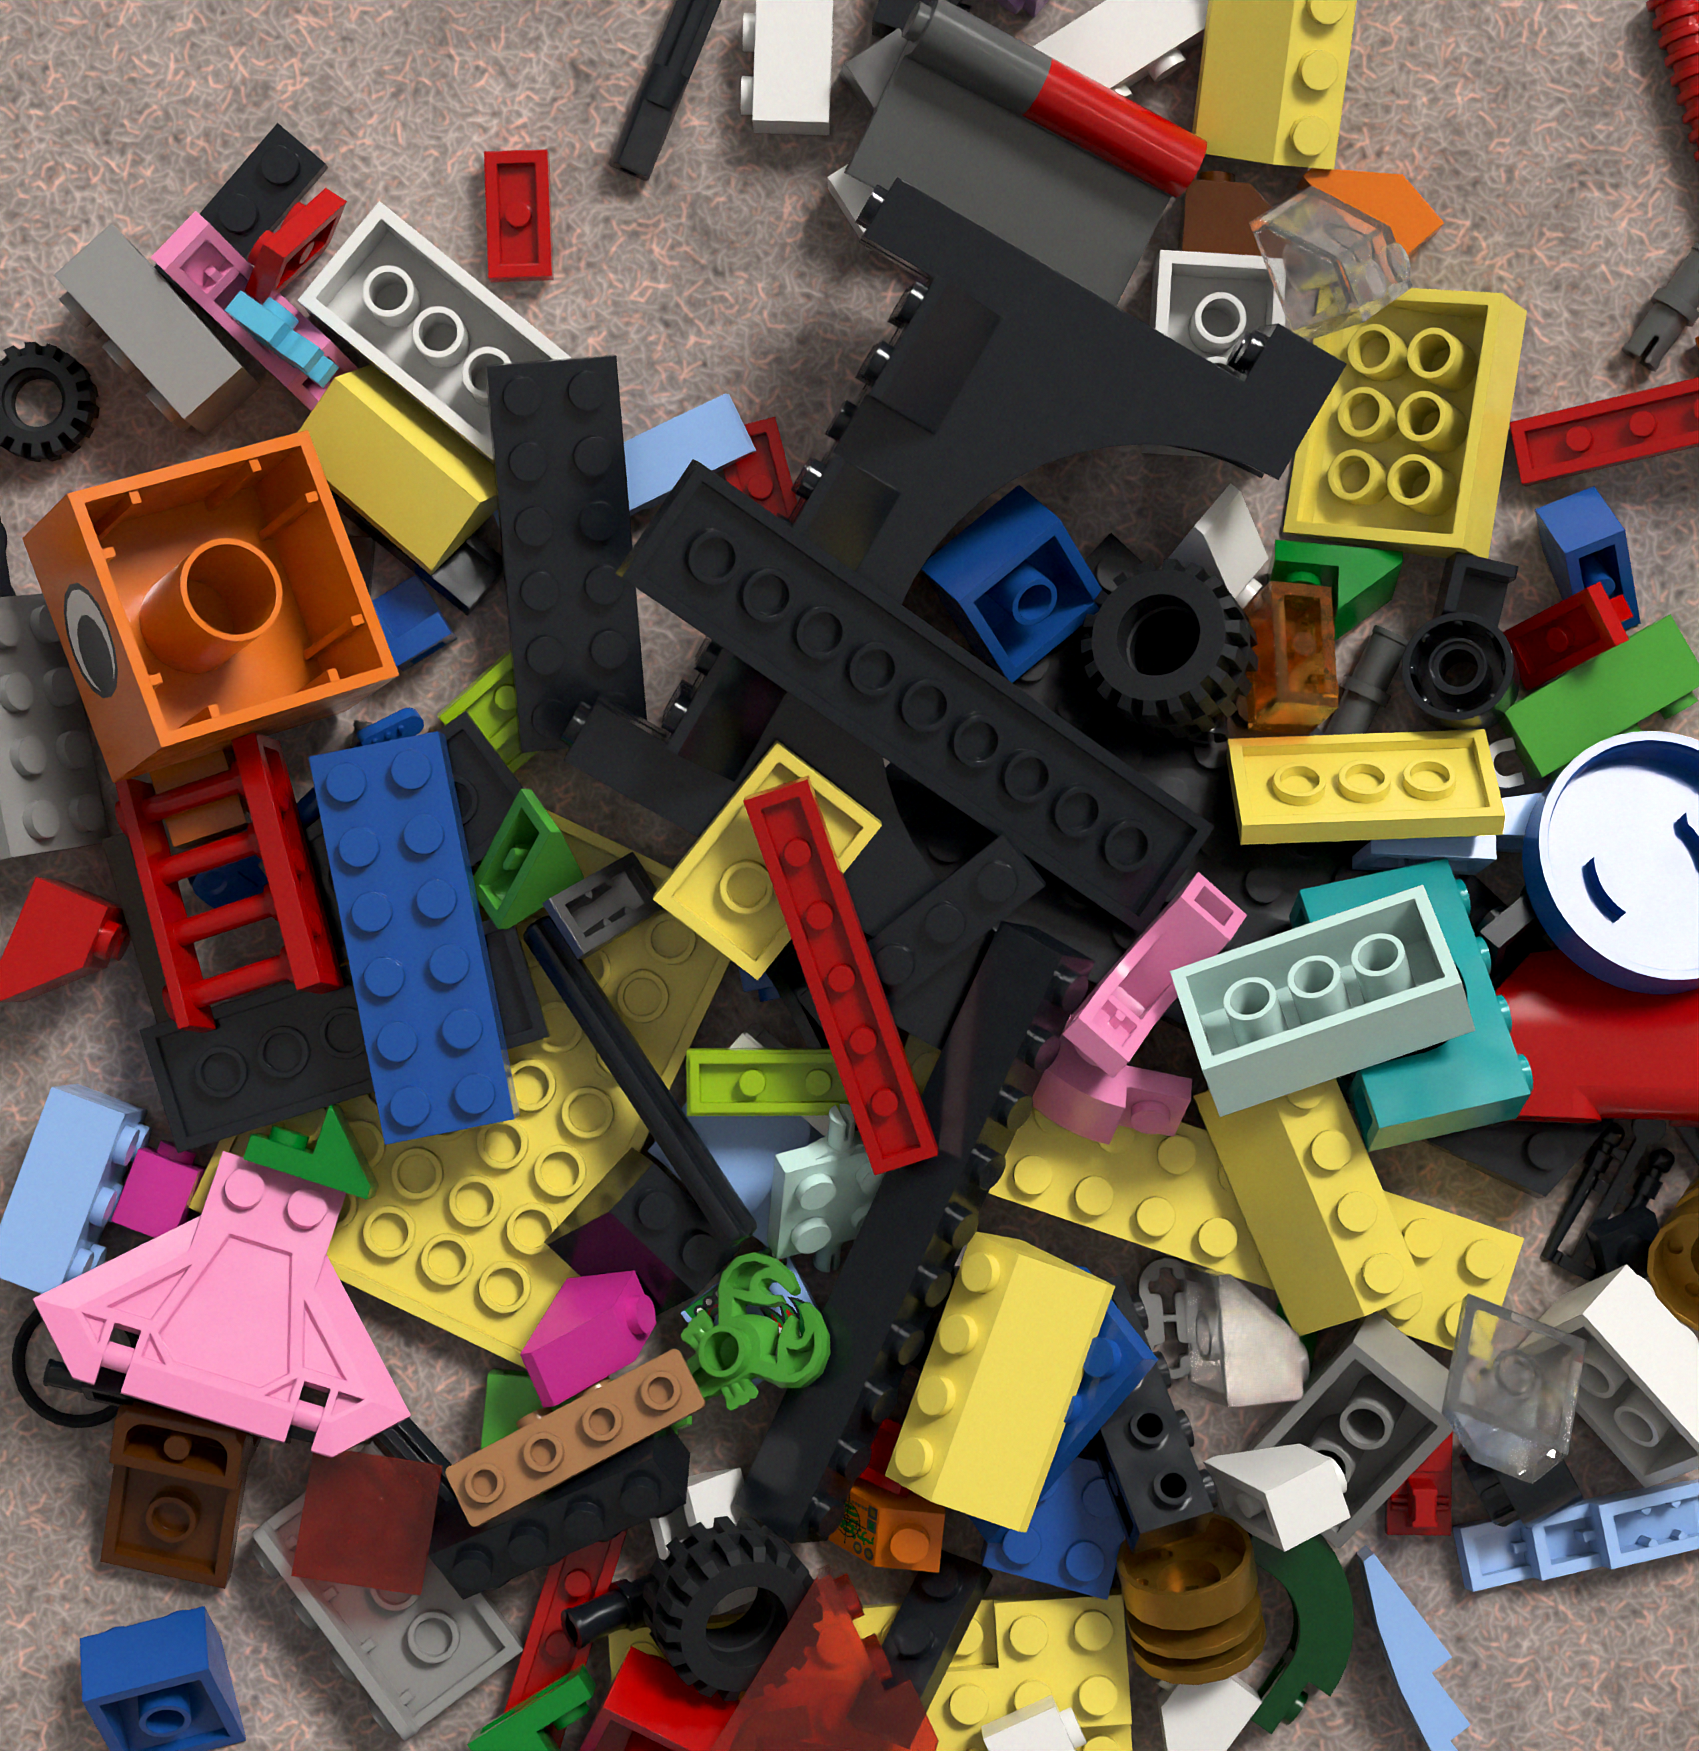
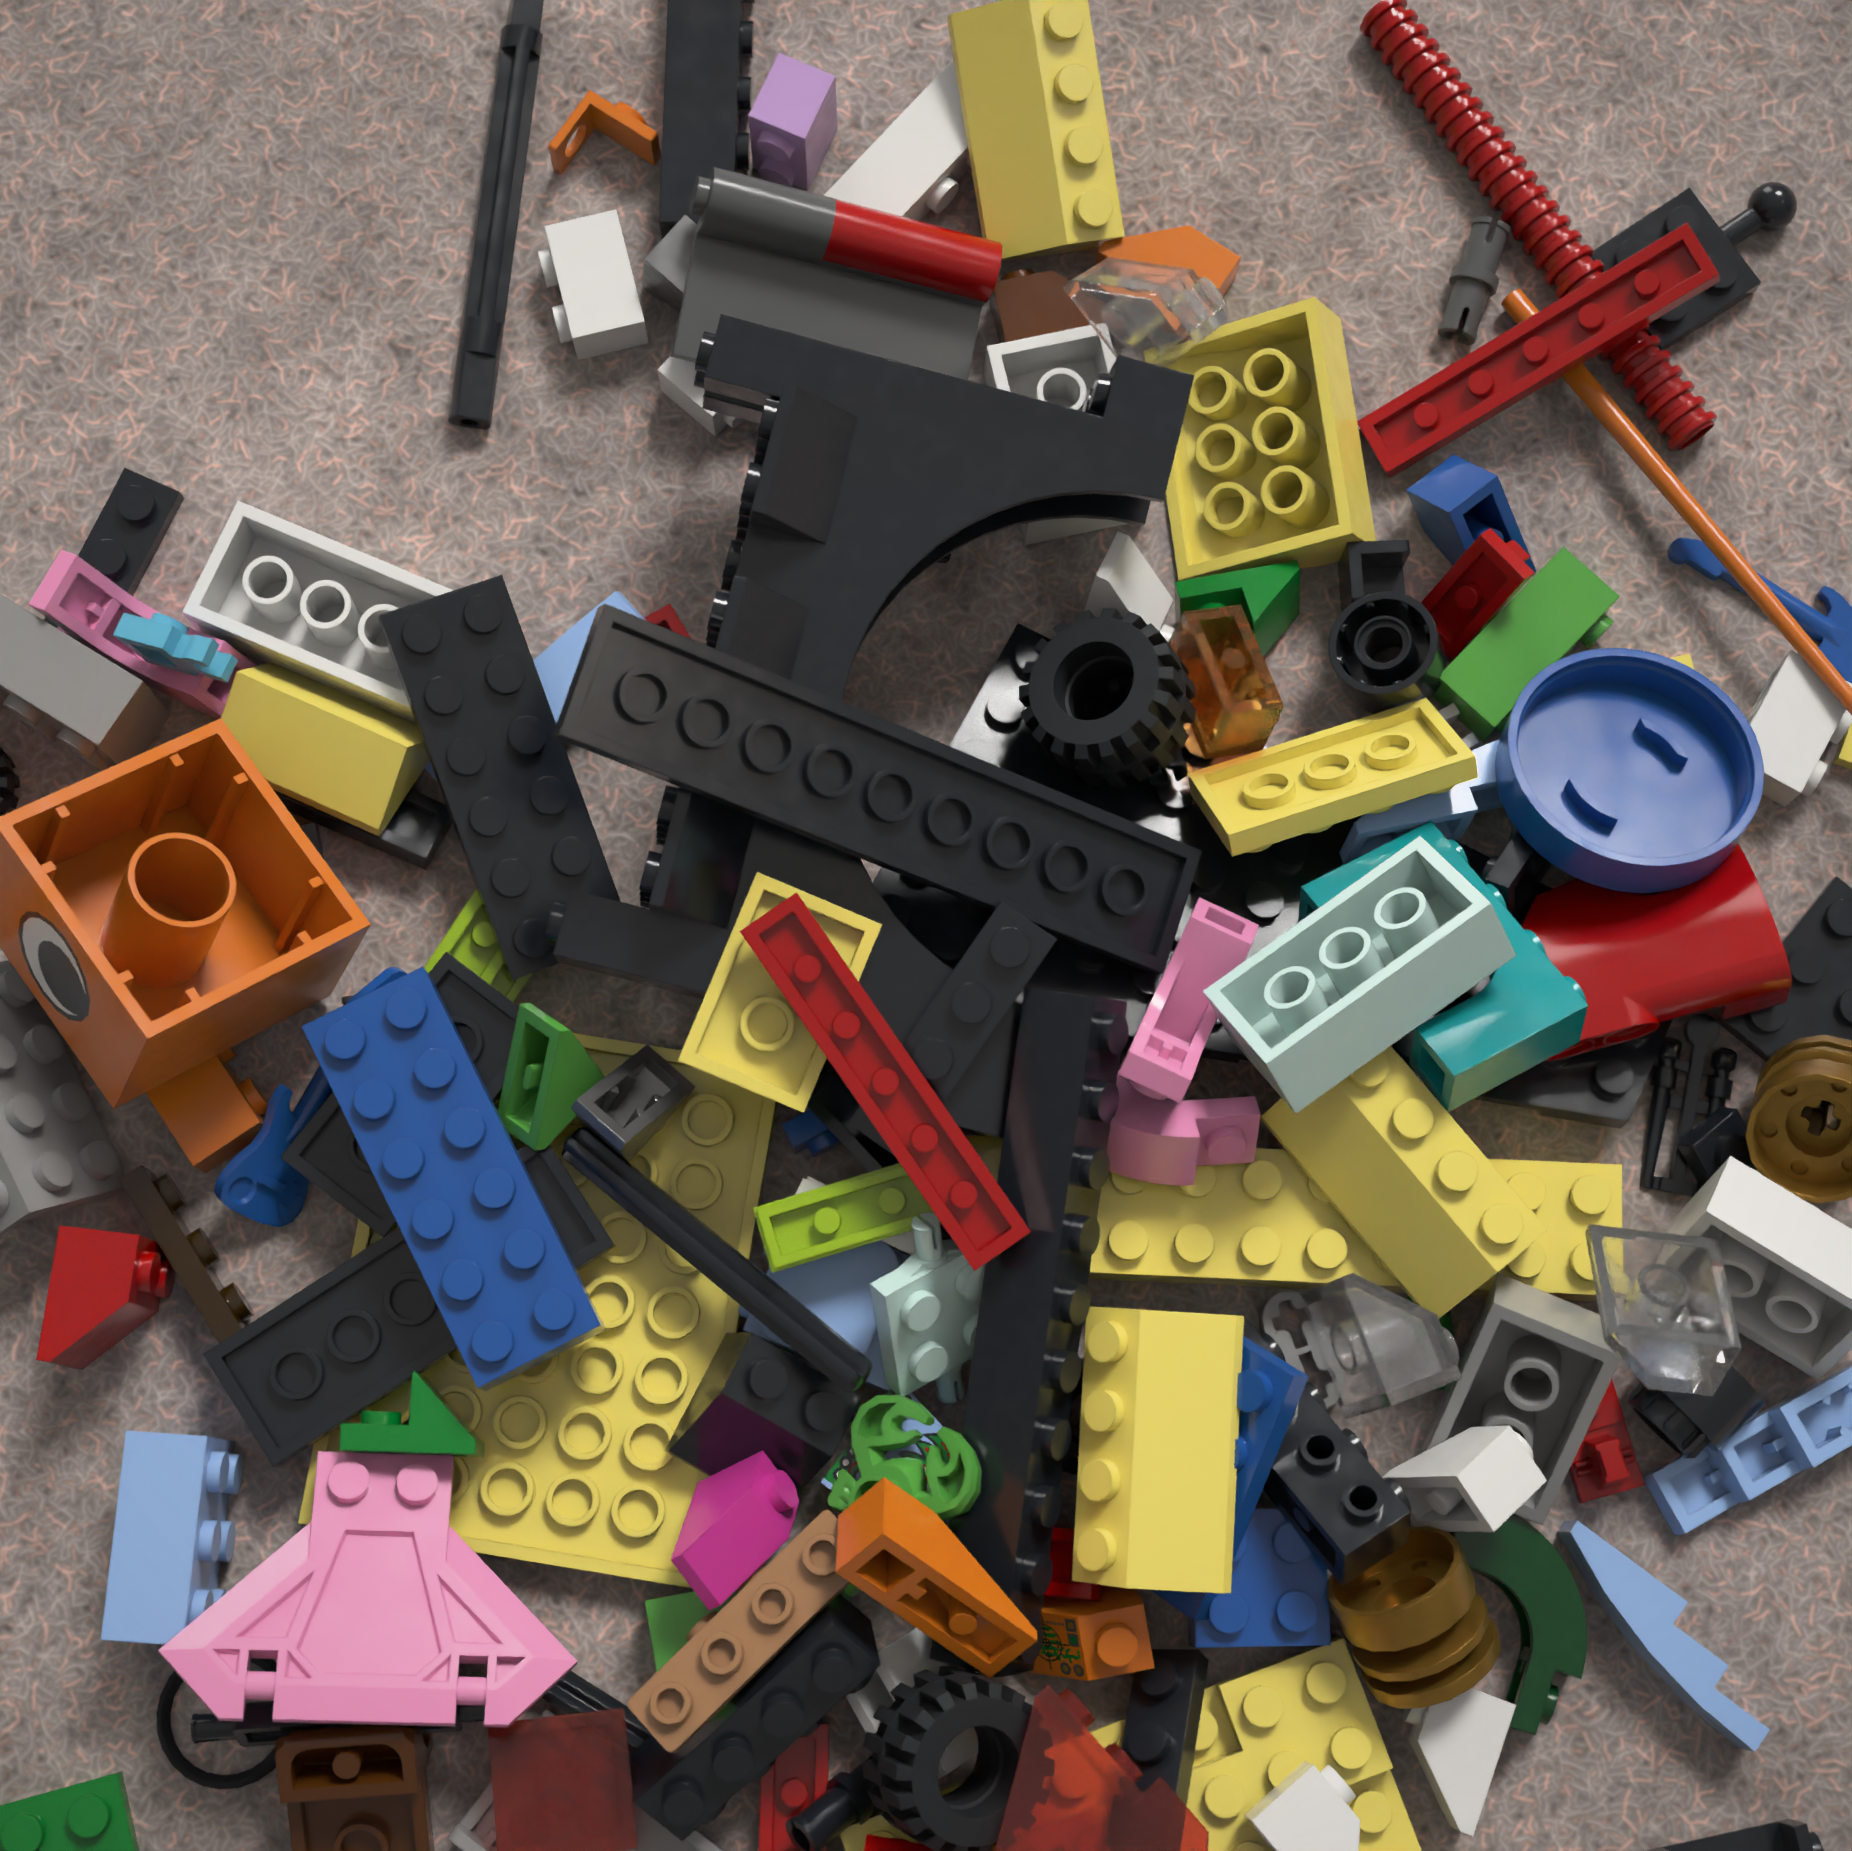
camera: 25 degrees left, 10 degrees down
(158, 1190) = (262, 1512): dark pink brick -> none
(288, 897) = (318, 1173): red fence -> none
(298, 242) = (167, 565): red plate -> none
(412, 623) = (378, 891): blue panel -> none
(518, 215) = (376, 489): red plate -> none
(749, 1437) = (928, 1578): none -> orange slope
(1014, 583) = (942, 673): blue brick -> none
(1368, 683) = (1303, 688): dark grey pin -> none

